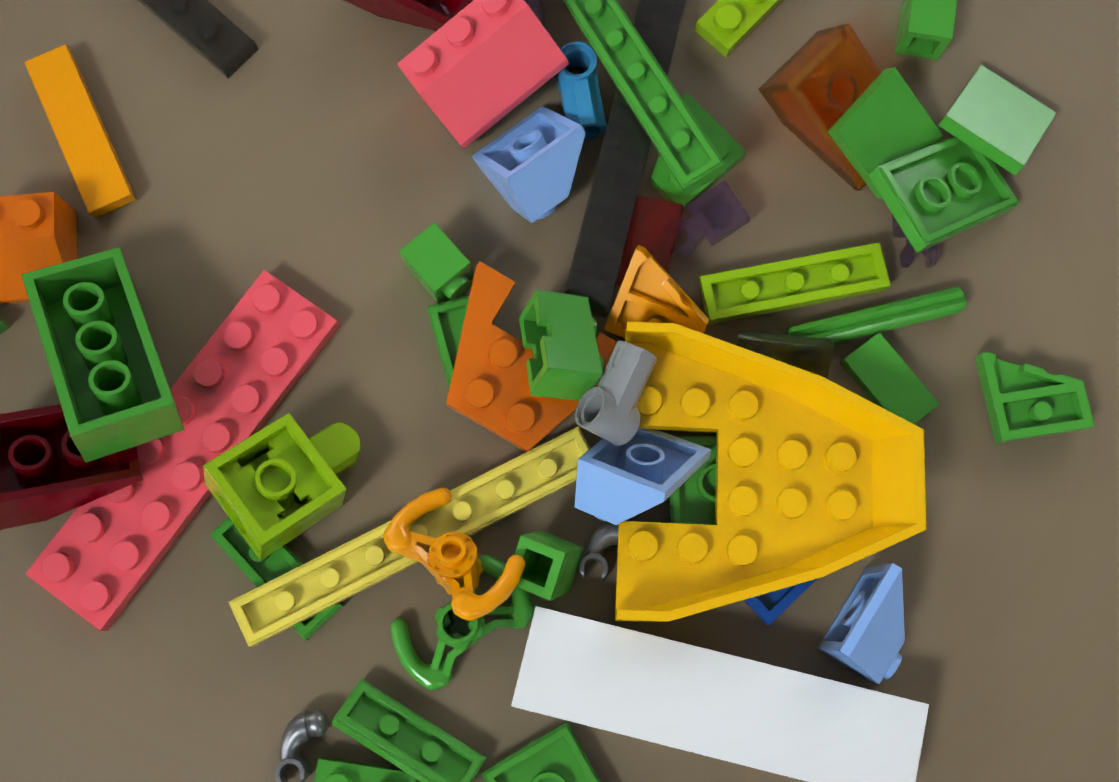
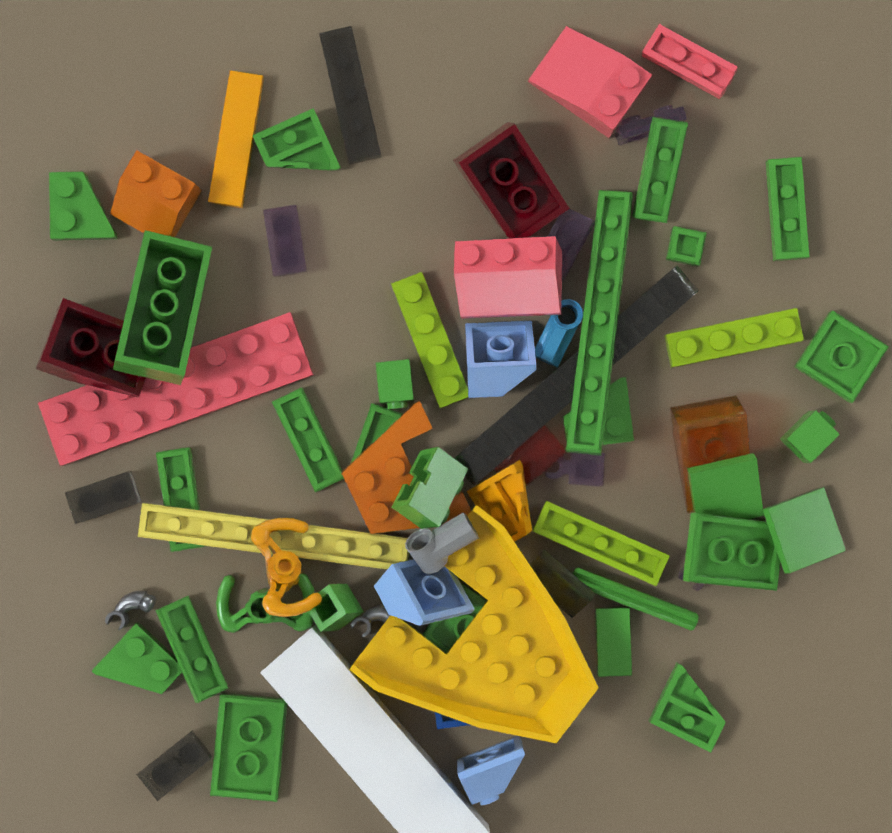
camera: 40 degrees right, 10 degrees up
(152, 89) = (297, 144): none -> bright green wing
(177, 632) = (103, 497): none -> clear smoke plate
(206, 197) = (285, 240): none -> clear purple plate
(282, 481) = (218, 455): lime brick -> none
(383, 397) = (308, 439): none -> bright green tile
(446, 197) = (430, 339): none -> lime plate

